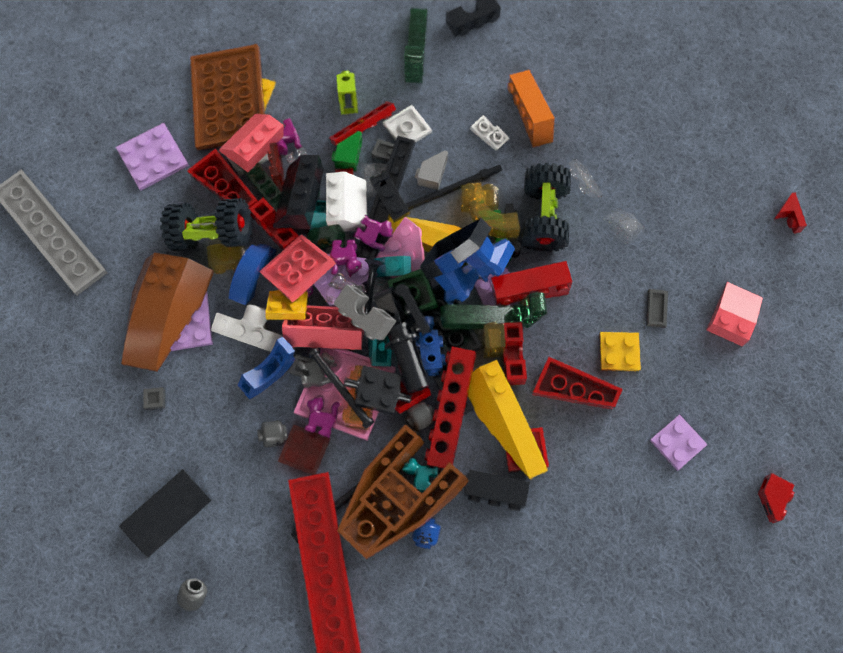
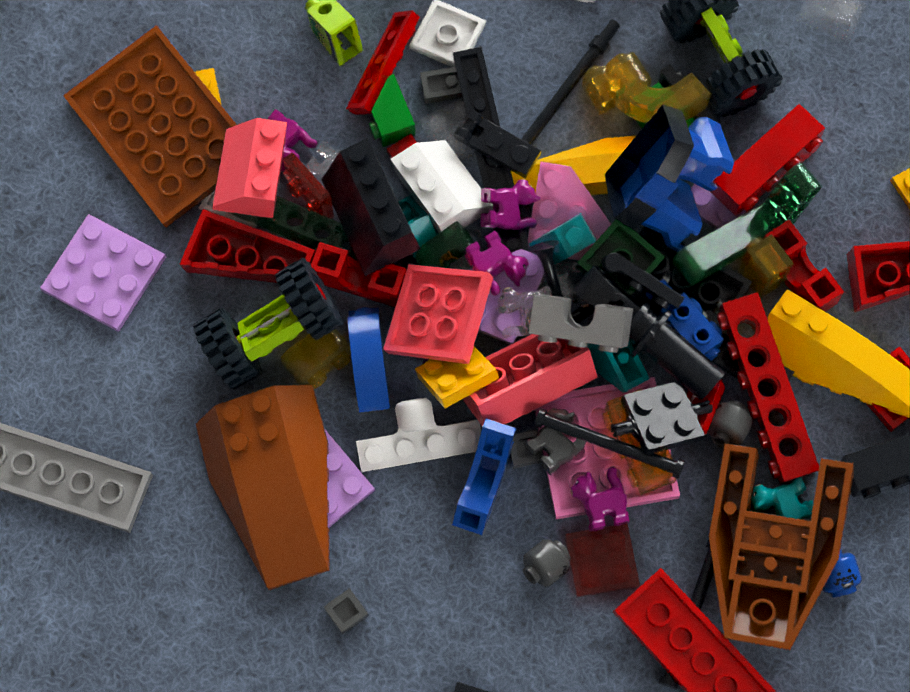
camera: 30 degrees left, 0 degrees up
(432, 171) = (527, 79): light grey slope -> none

